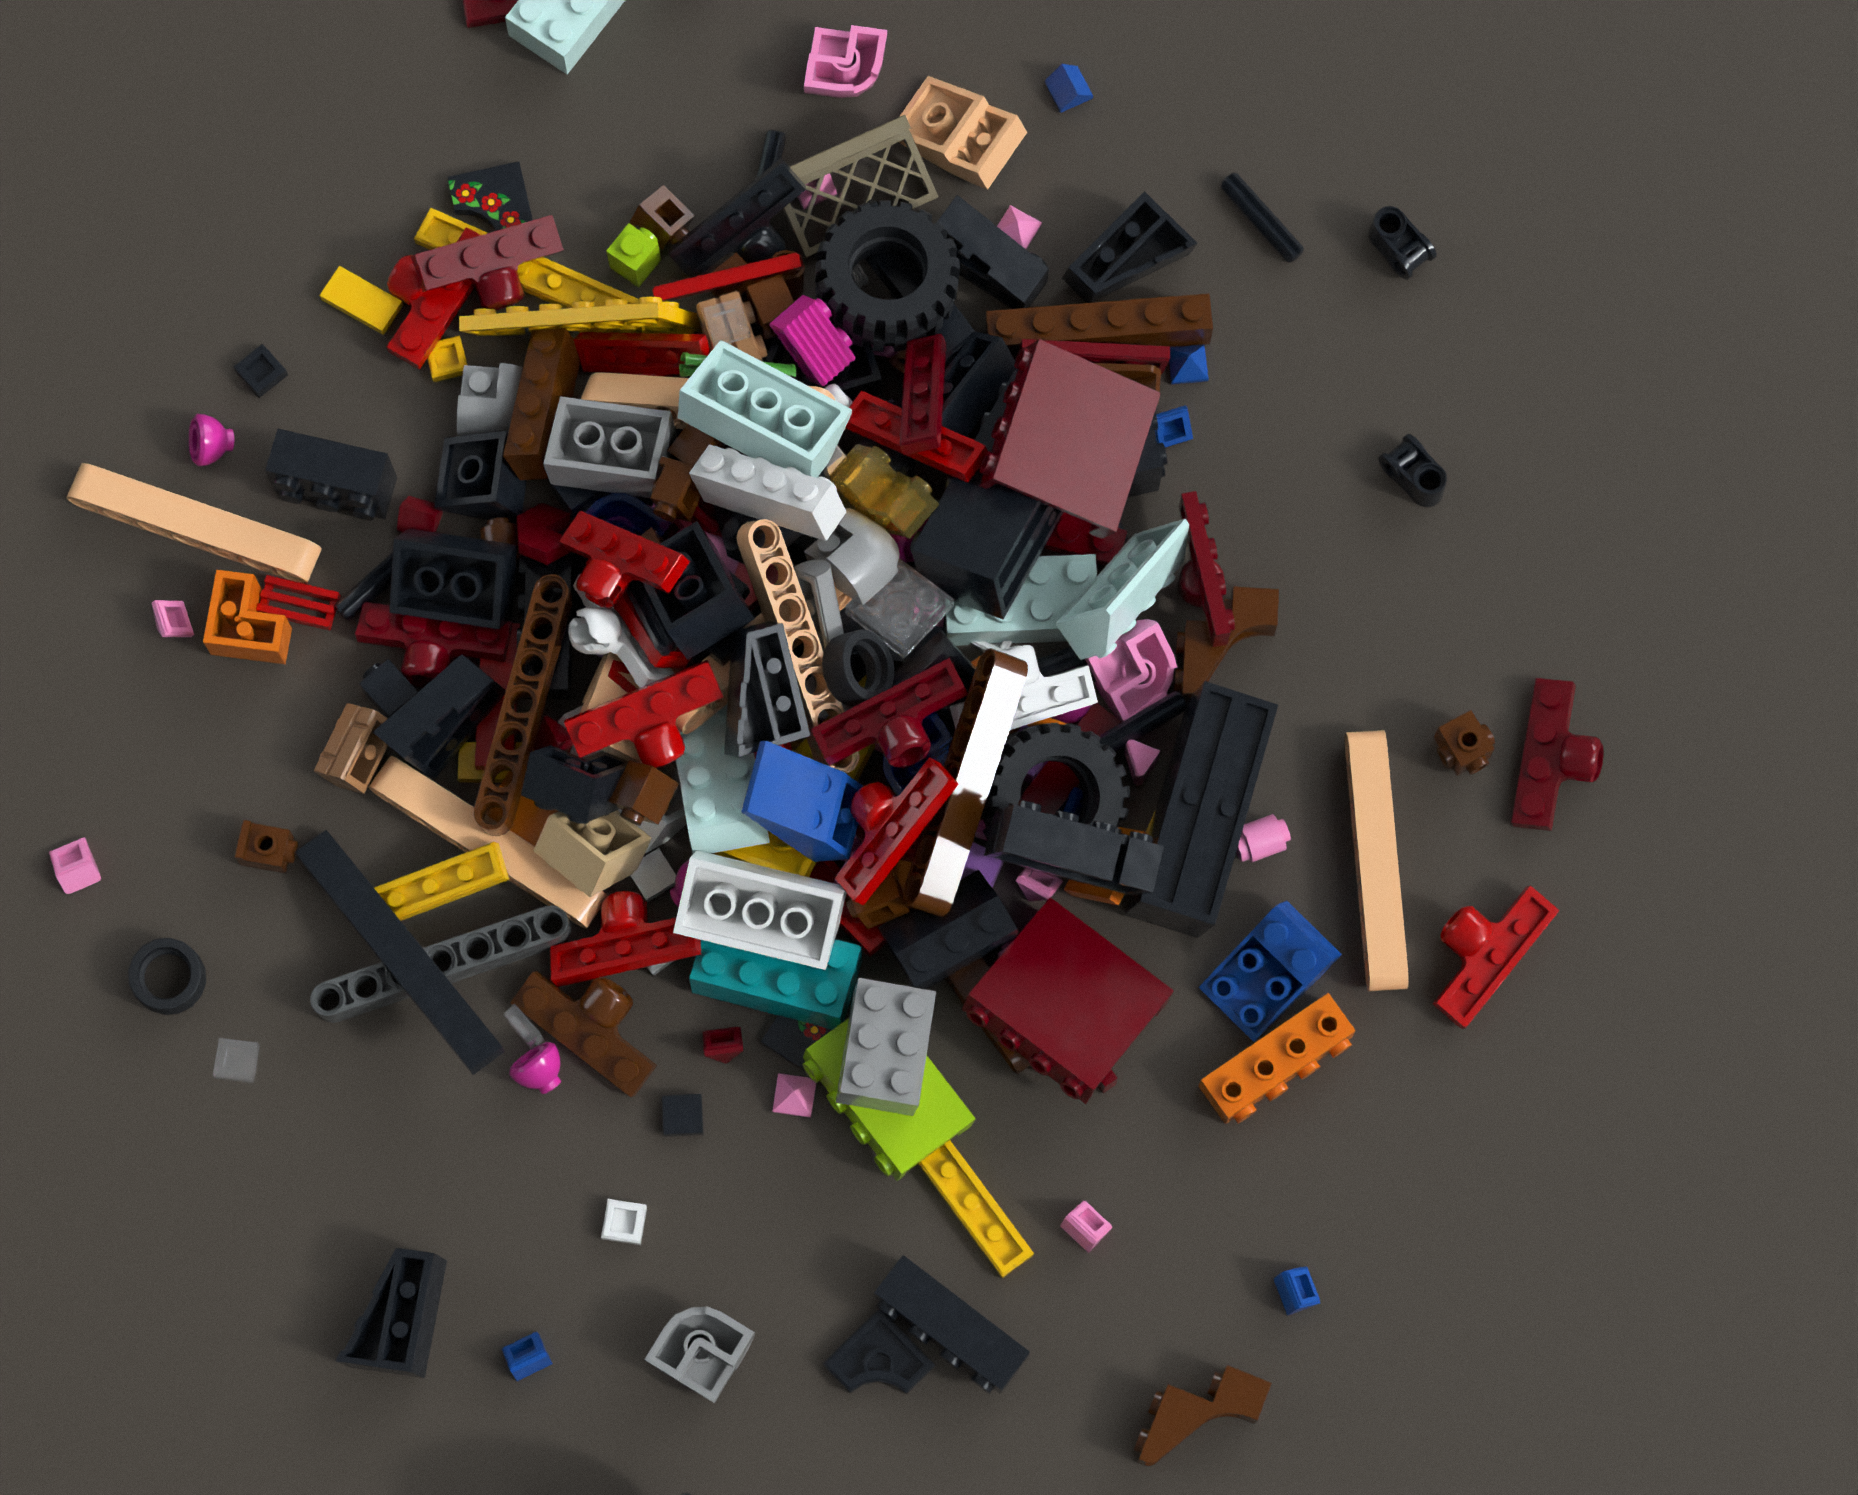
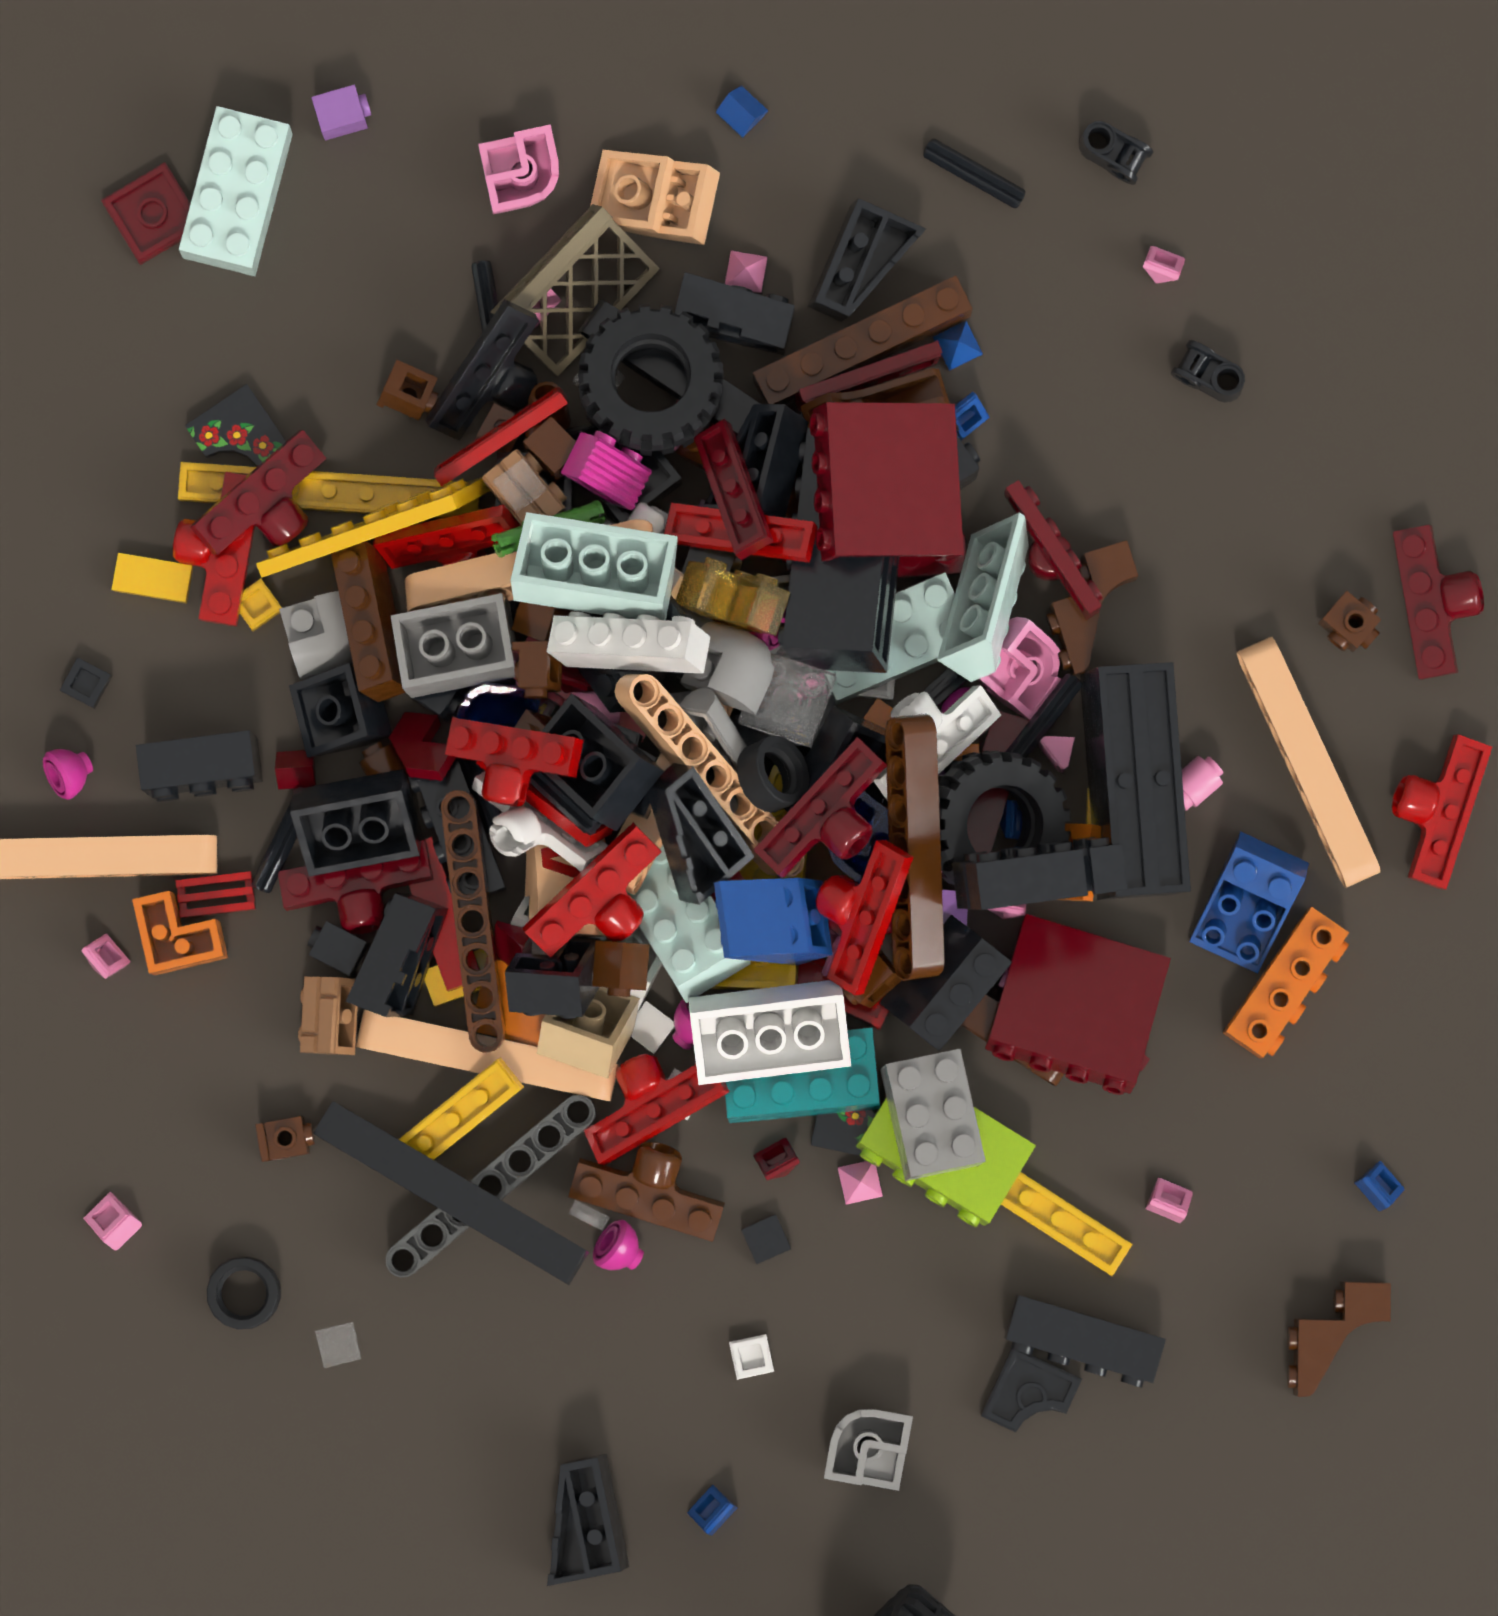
camera: 20 degrees left, 10 degrees up
(634, 254) = (395, 436): lime brick -> none
(1407, 360) = (1163, 265): none -> bright pink slope

